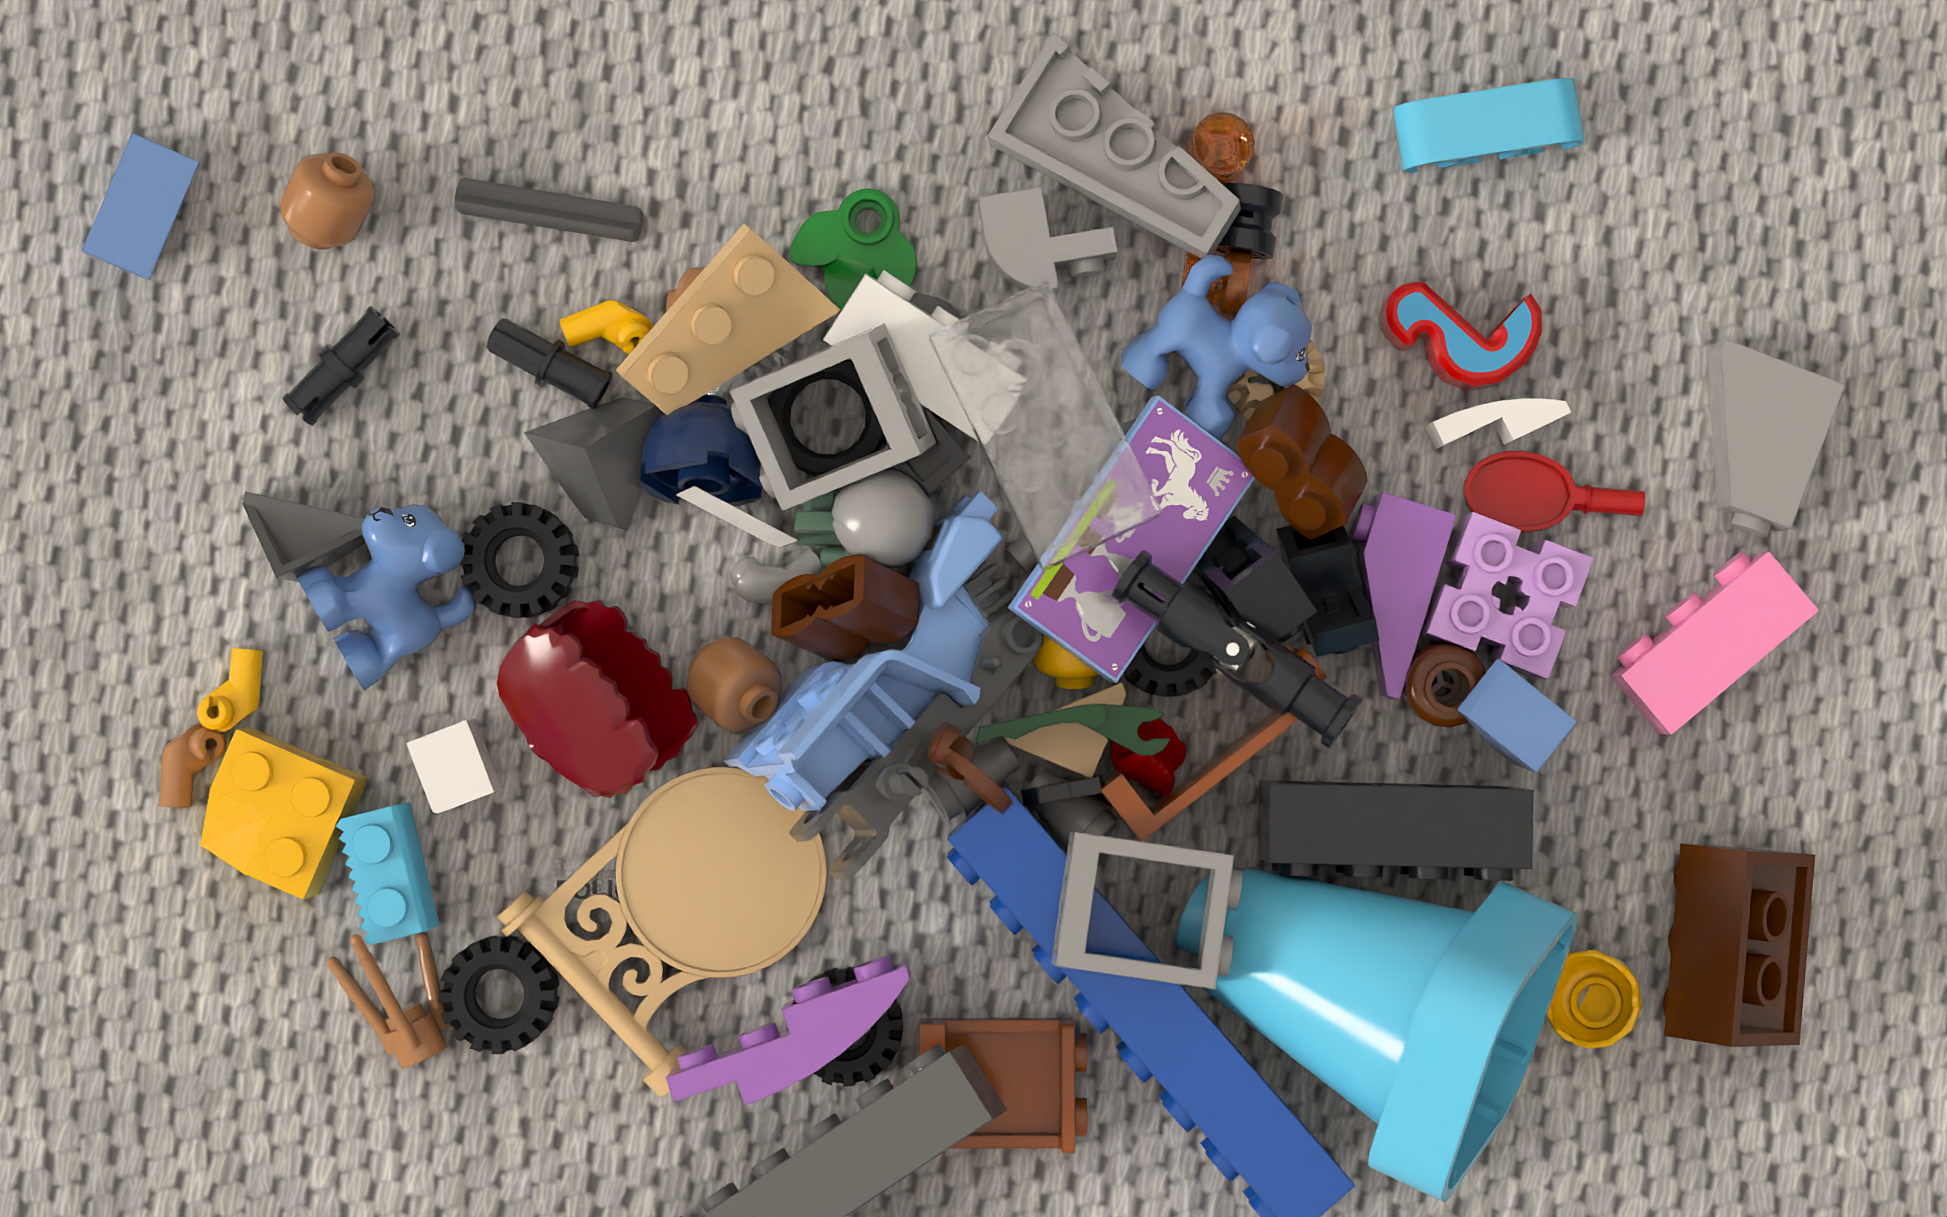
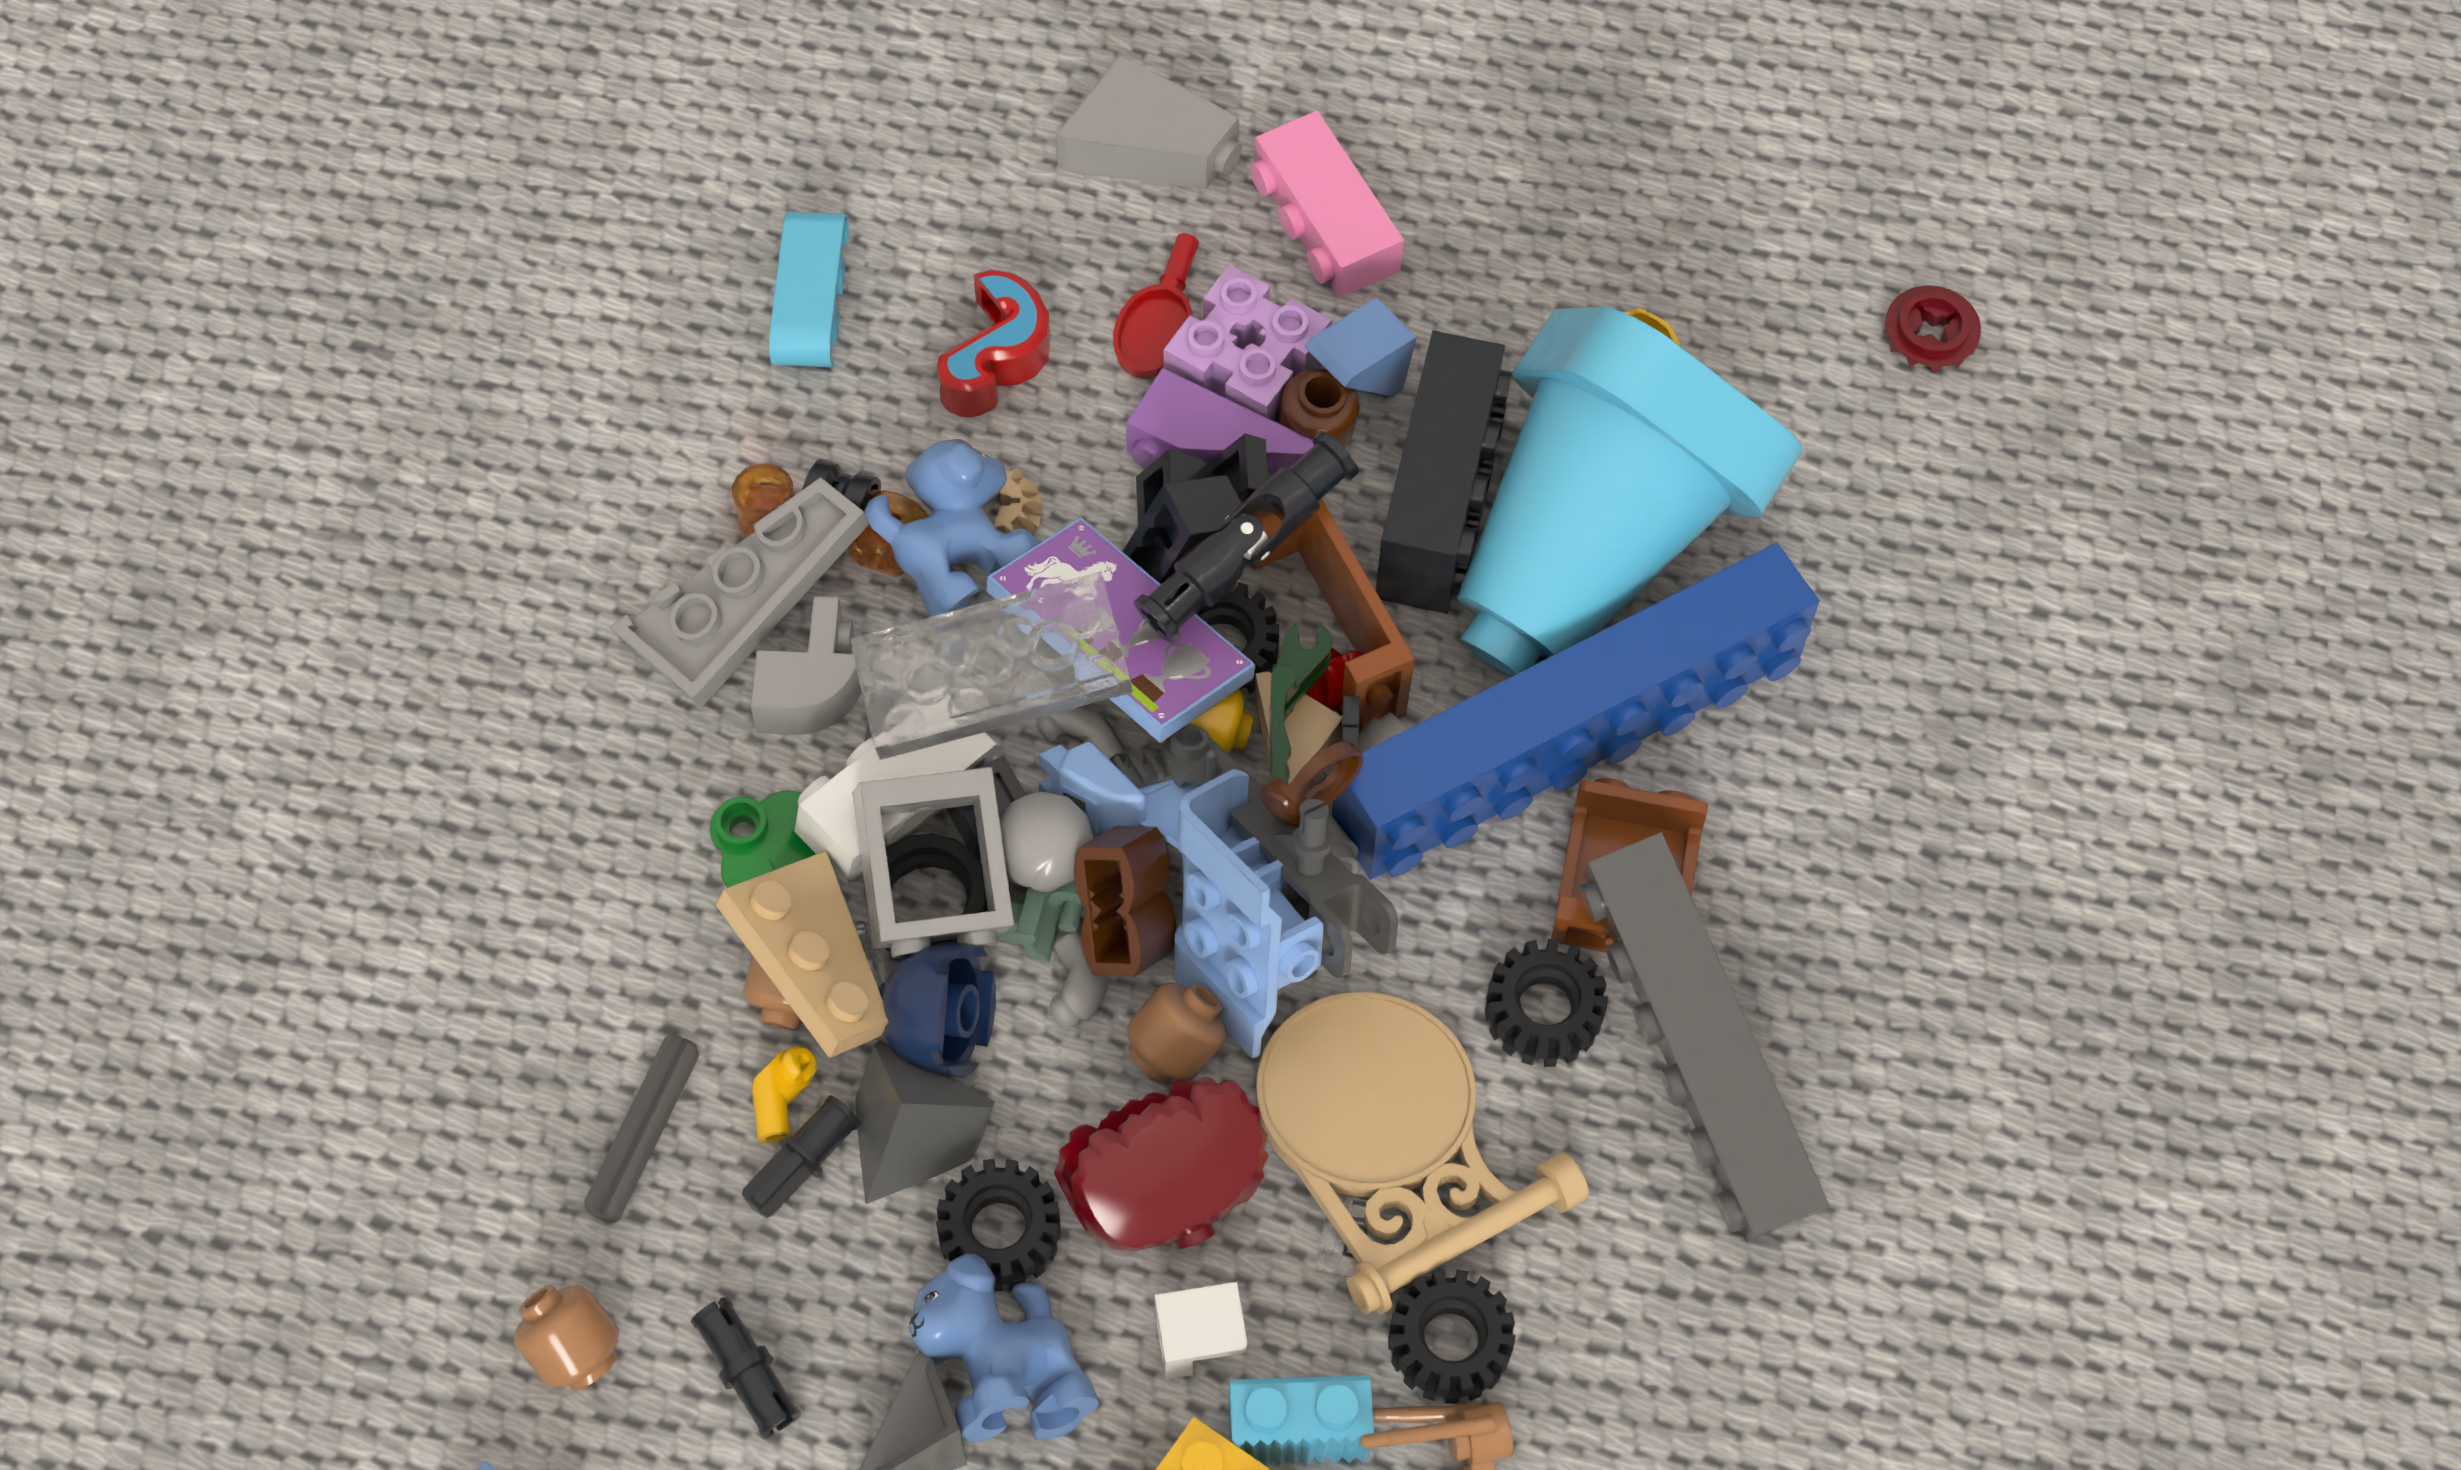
camera: 80 degrees left, 25 degrees down
(736, 517) = (1007, 997): white sticker -> none
(819, 1026) = (1550, 1012): medium lavender slope -> none
(1077, 898) = (1465, 709): light grey window -> none
(1305, 465) = (1081, 481): reddish brown brick -> none
(1510, 418) = (1083, 327): white slope -> none
(1738, 946) = (1603, 240): reddish brown slope -> none

